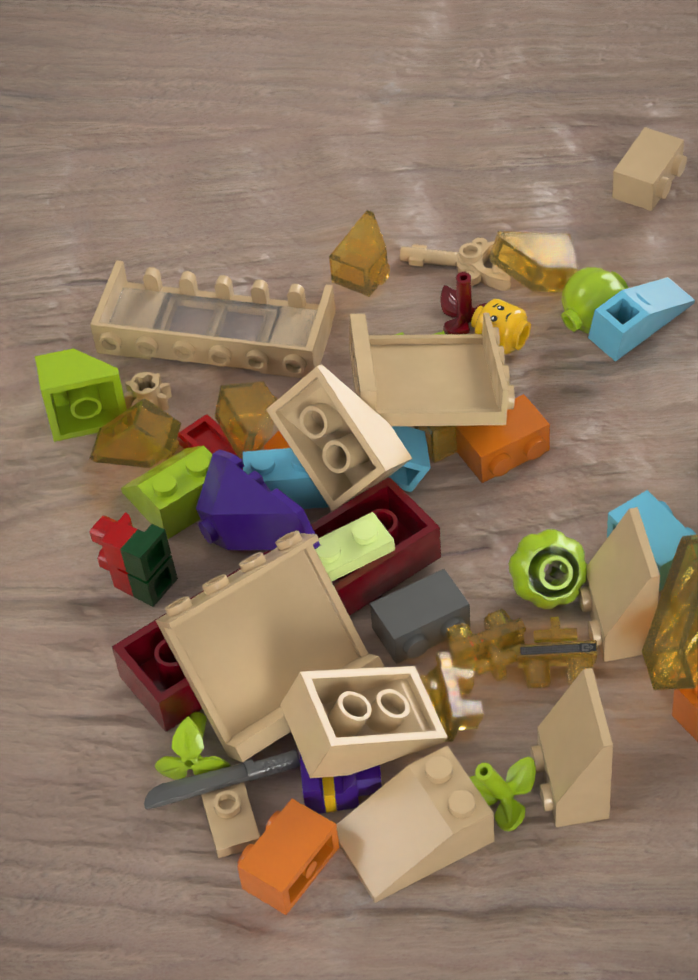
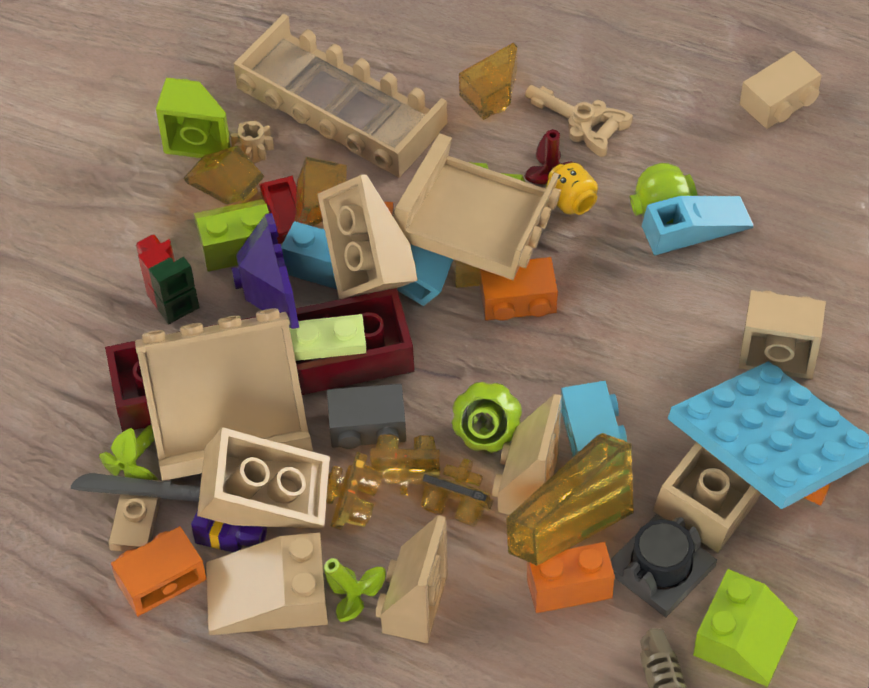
camera: 20 degrees right, 5 degrees up
(535, 258) = (632, 138): clear yellow slope -> none

